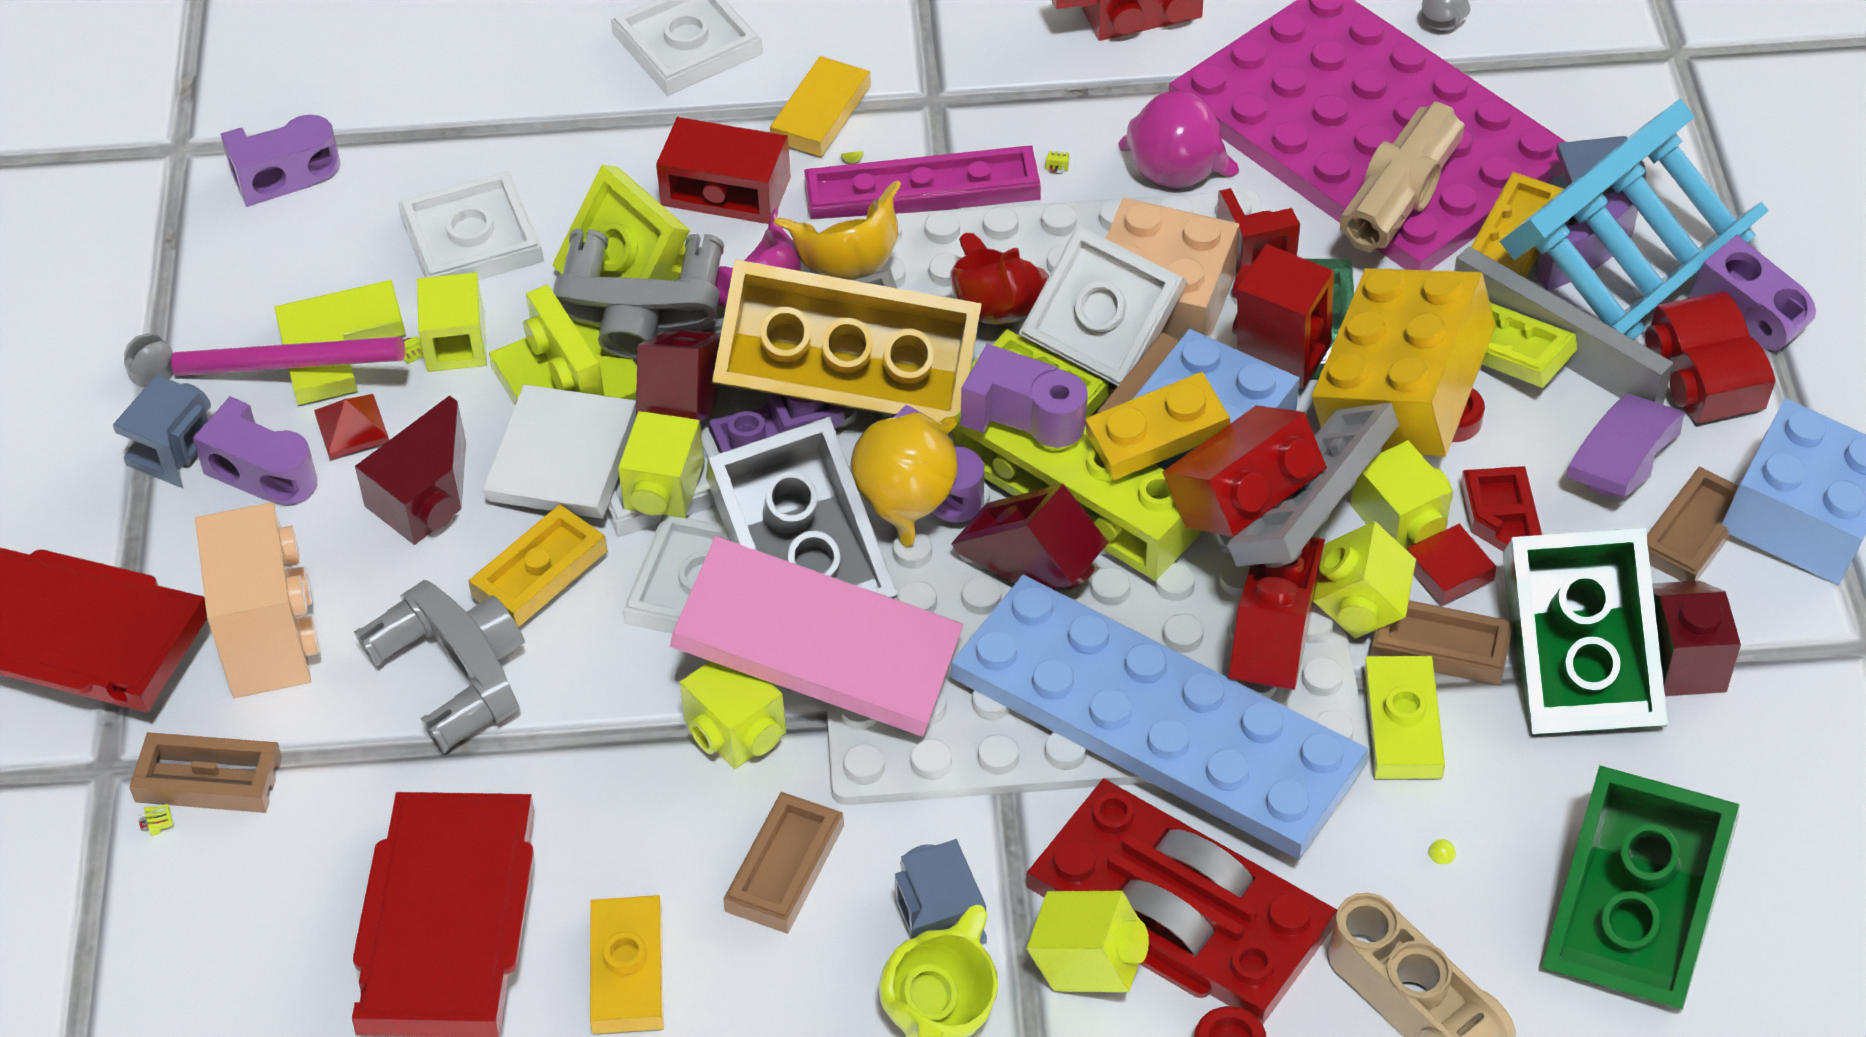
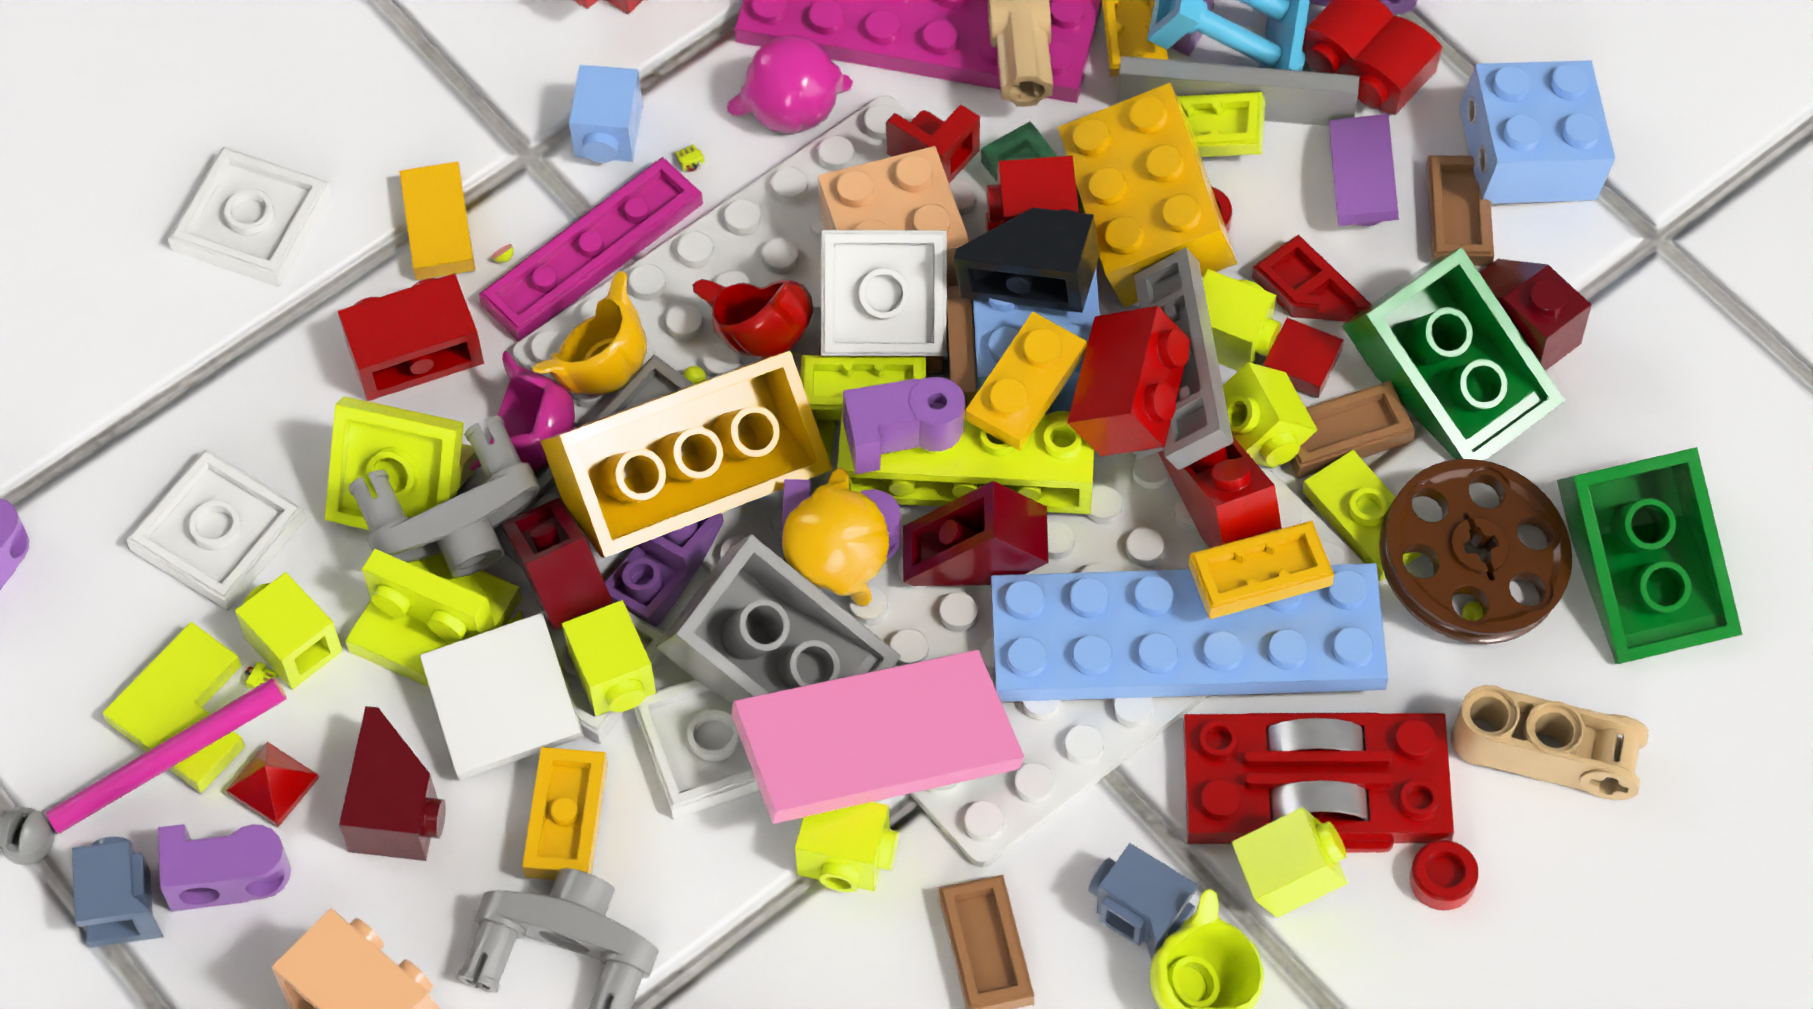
camera: 35 degrees left, 10 degrees up
(1011, 91) = (606, 113): none -> light blue brick
(1236, 334) = (1032, 261): none -> black slope
(1247, 686) = (1261, 569): none -> yellow plate
(1448, 802) = (1465, 573): none -> reddish brown wedge

